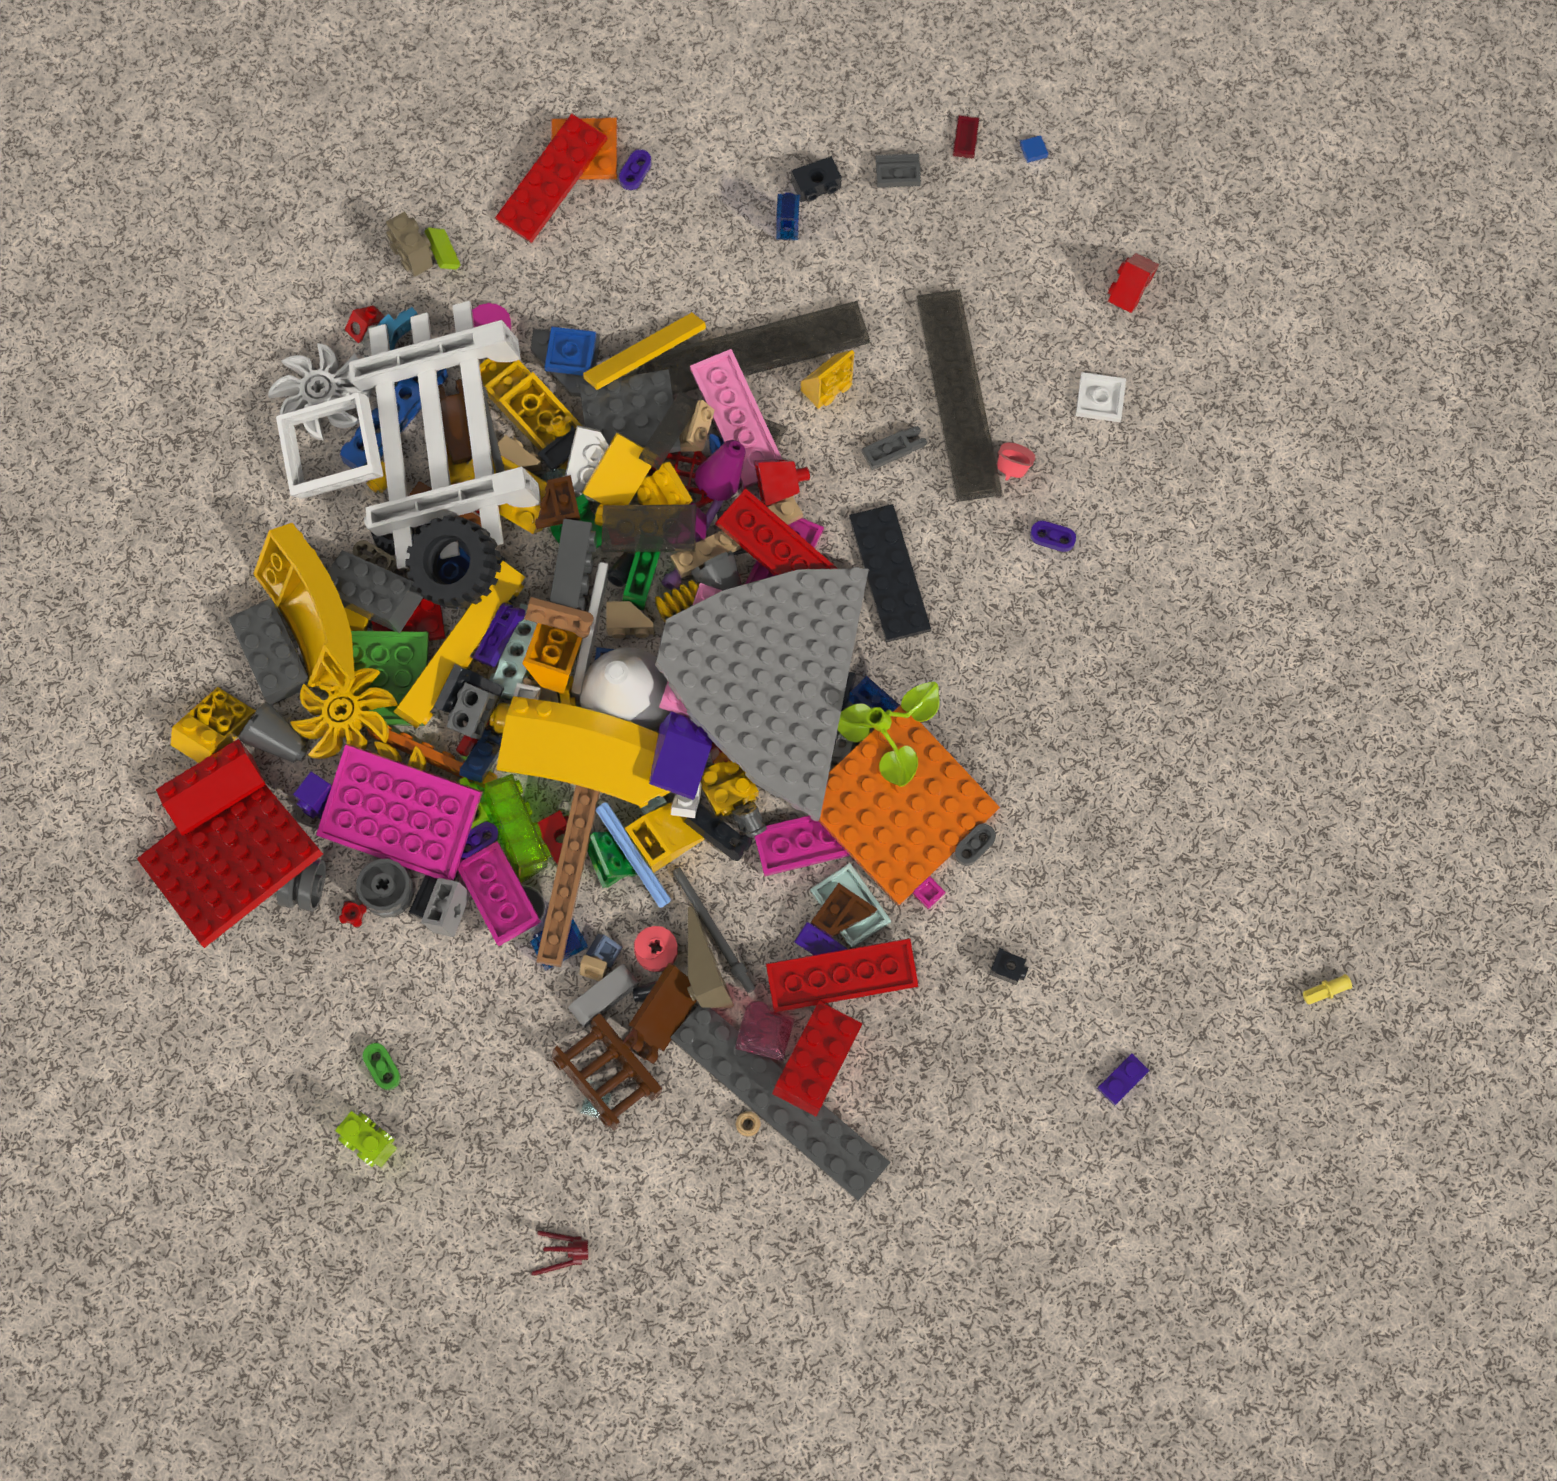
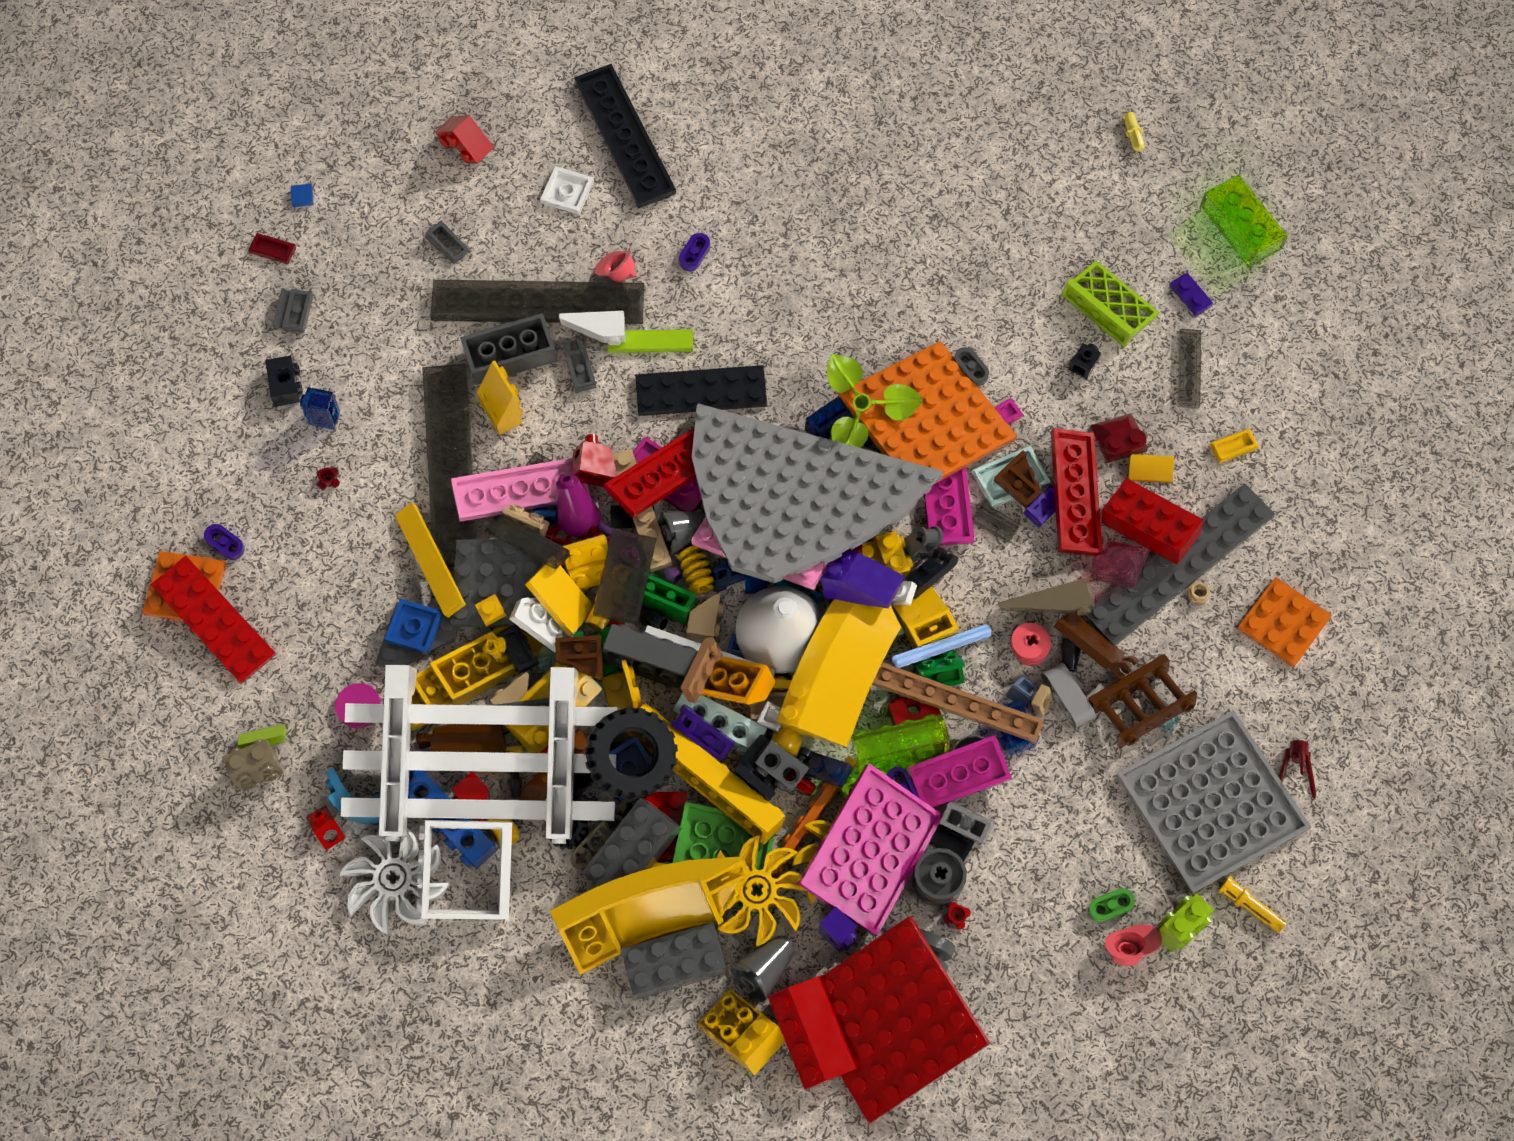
camera: 80 degrees left, 5 degrees down
(339, 1089) = (1132, 944): none -> coral piece
(406, 1202) = (1242, 897): none -> yellow pin
(412, 441) = (471, 789): none -> red slope
(423, 477) = (515, 784): none -> black bar
(508, 1162) = (1213, 802): none -> light grey plate
(535, 556) = (621, 689): none -> yellow bracket
(594, 412) = (490, 610): none -> yellow plate
(720, 239) = (328, 472): none -> dark red plate
(730, 1223) = (1284, 622): none -> orange plate
(737, 969) = (1056, 579): dark grey bar -> none
(800, 877) = (984, 507): none -> clear smoke tile
(888, 1055) = (1151, 468): none -> yellow slope
(893, 375) = (514, 346): none -> dark grey brick
(921, 1017) = (1119, 438): none -> dark red slope
(935, 456) = (602, 326): none -> white slope
(937, 513) = (655, 341): none -> lime tile
(937, 1147) = (1234, 446): none -> yellow tile
(1018, 279) = (442, 227): none -> dark grey slope
(1026, 1087) = (1189, 368): none -> clear smoke tile
(1071, 980) = (1100, 311): none -> lime fence
(1181, 440) = (625, 136): none -> black plate
(1230, 1127) = (1243, 220): none -> clear neon green brick

